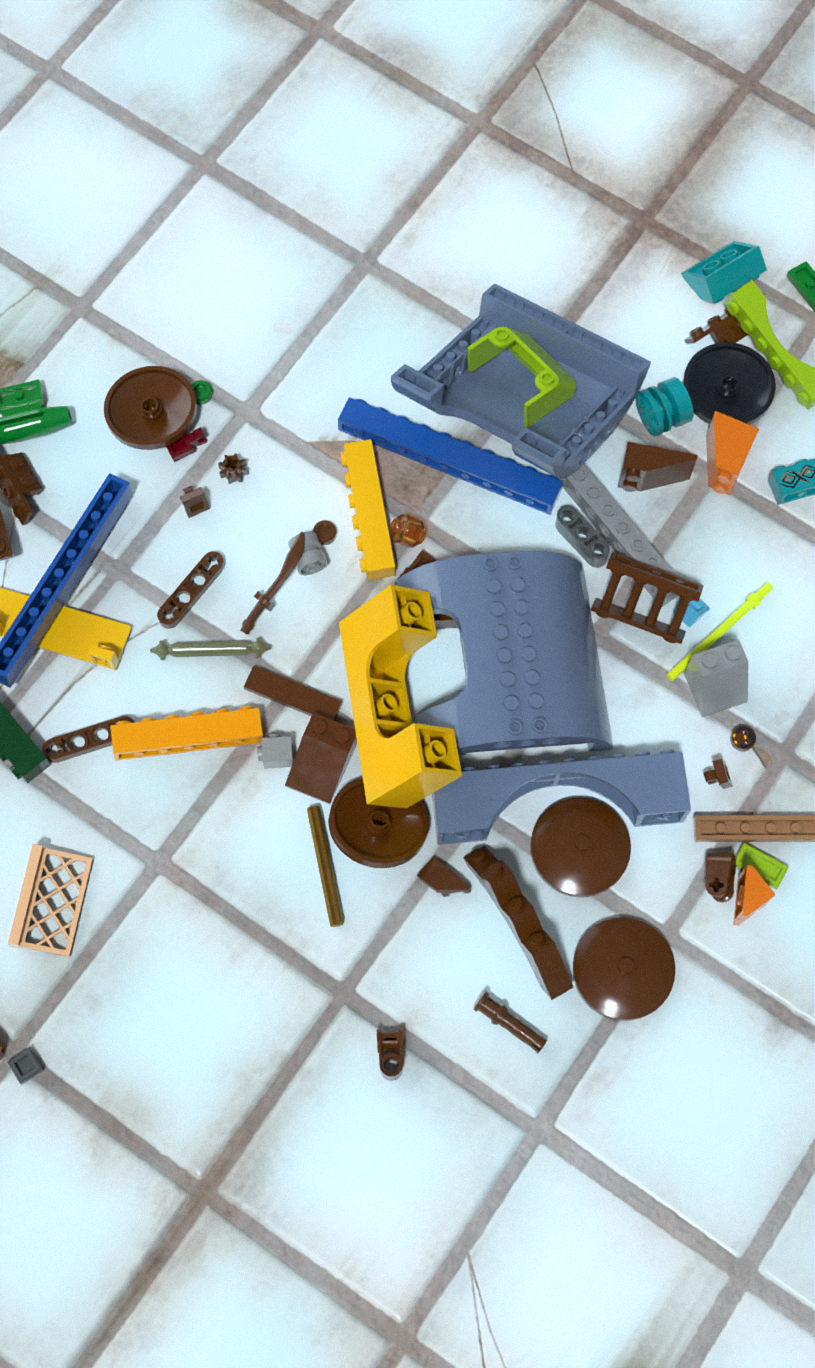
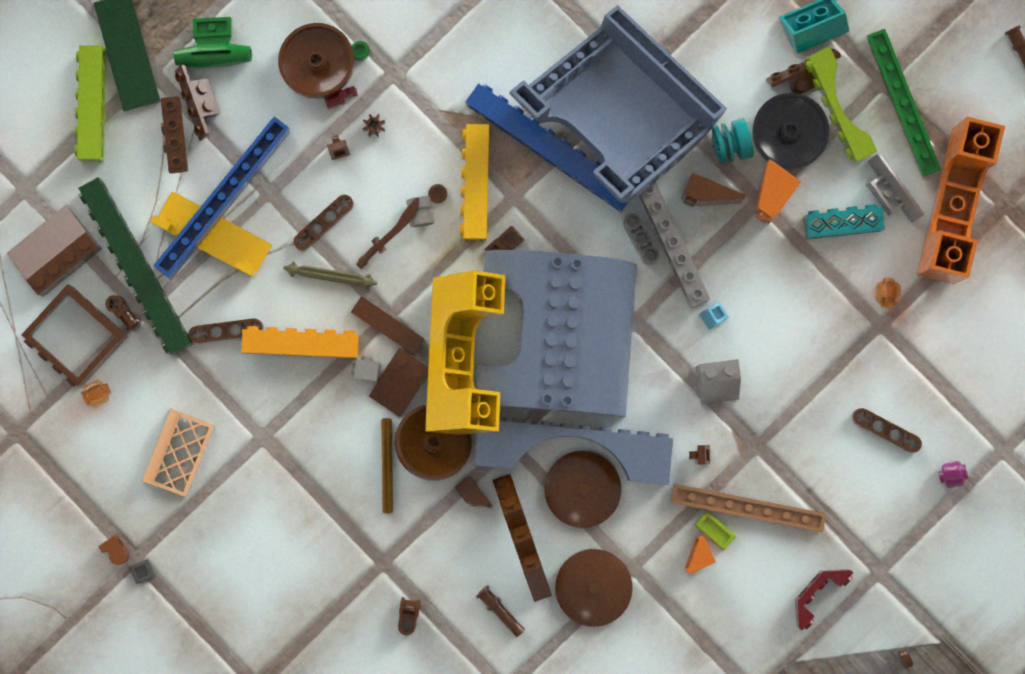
camera: 15 degrees right, 15 degrees up
(408, 530) = (503, 208): clear orange head -> none
(551, 379) = (647, 107): lime windscreen -> none
(664, 582) = (686, 291): reddish brown fence -> none
(720, 871) = (682, 531): reddish brown piece -> none
(743, 738) = (727, 428): reddish brown tile -> none
(751, 602) = (764, 318): neon yellow bar -> none

